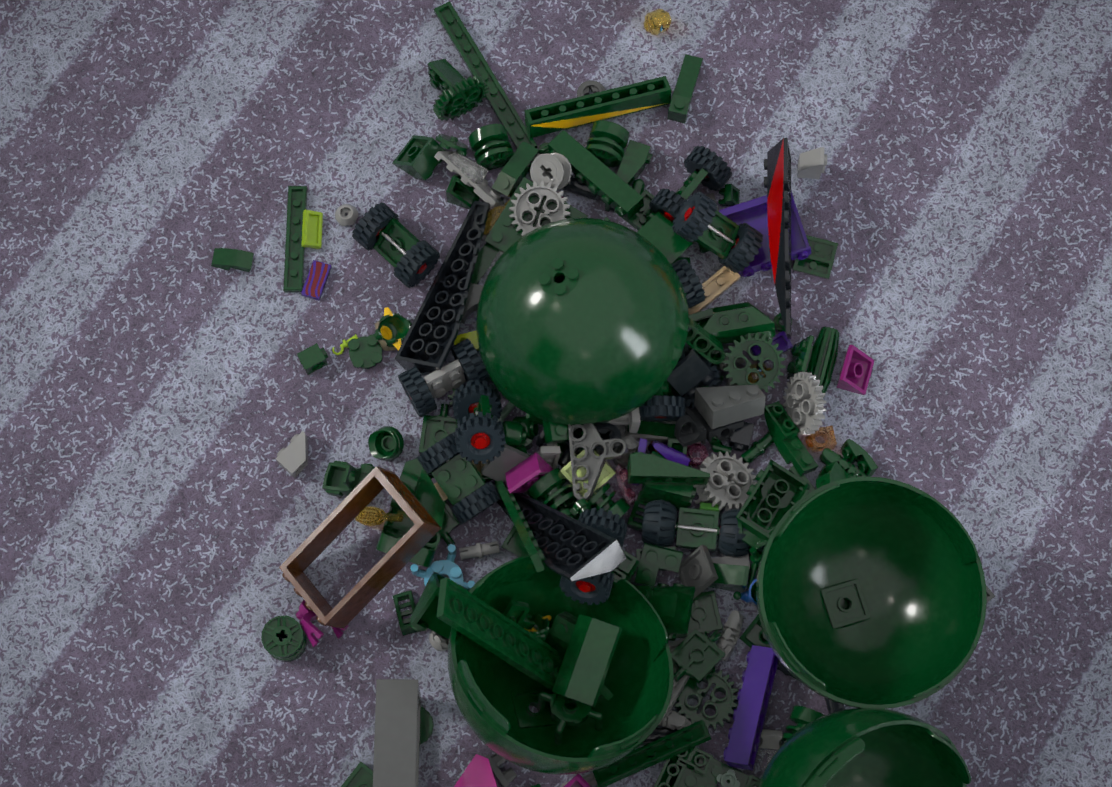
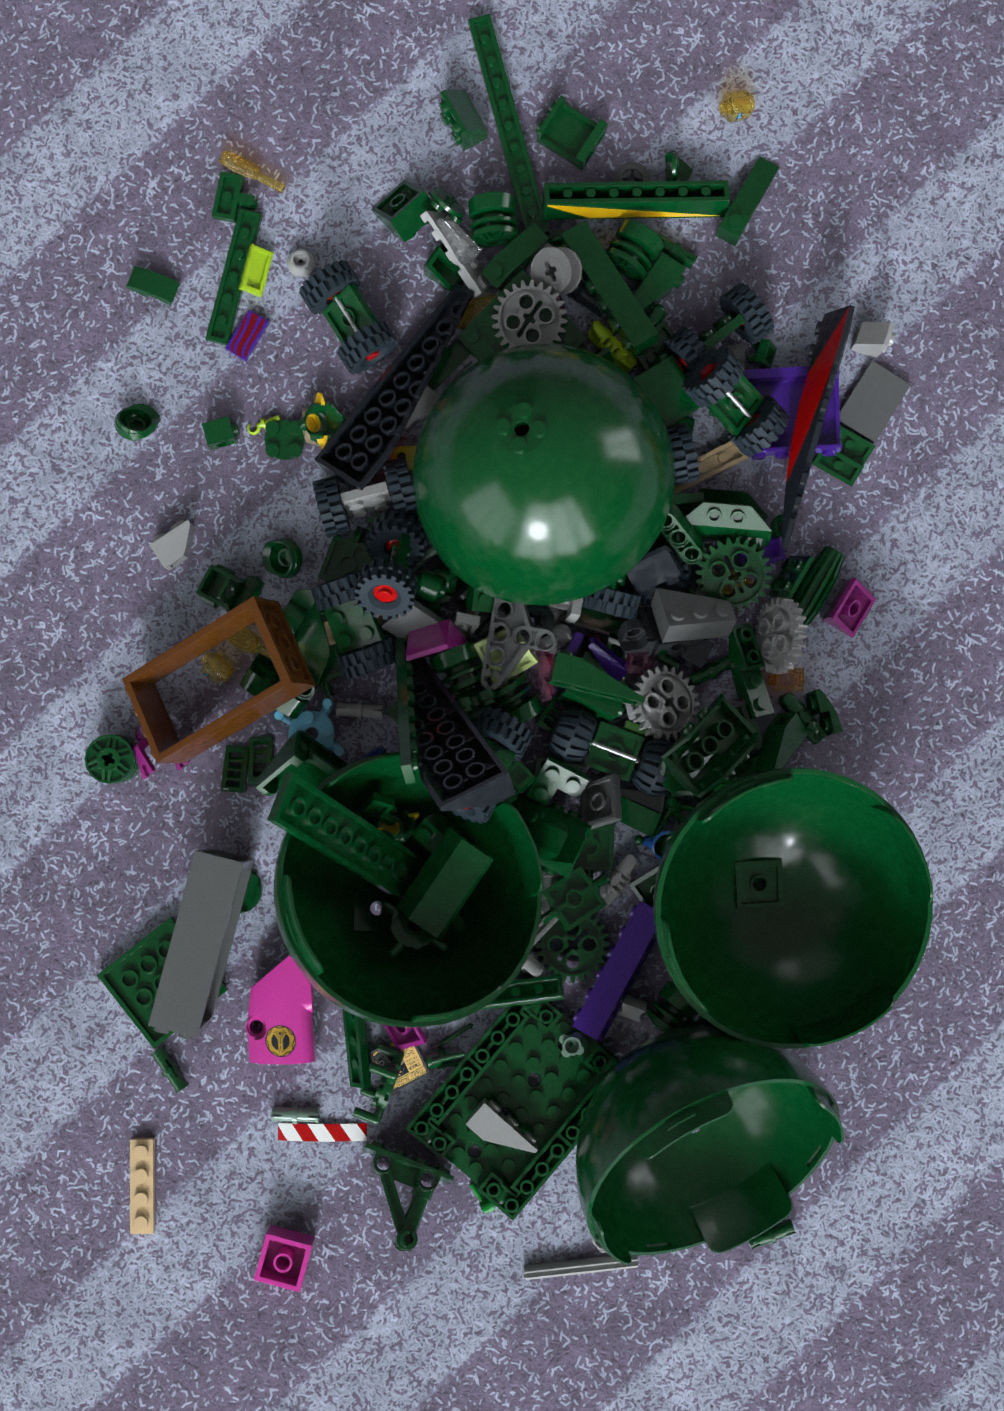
camera: 10 degrees right, 15 degrees up
(242, 366) = (136, 422): none -> dark green hat
(278, 179) = (230, 196): none -> dark green plate
(289, 157) = (249, 170): none -> clear yellow piece
(352, 543) = (217, 666): none -> clear yellow head
(391, 639) = (241, 788): none -> dark green slope
(460, 98) = (470, 147): dark green gear -> none
(534, 71) = (570, 133): none -> dark green panel
(599, 212) = (603, 337): none -> lime hinge
(623, 77) = (676, 168): none -> dark green piece
(643, 138) = (677, 252): none -> dark green pin
(826, 211) = (873, 402): none -> dark grey tile

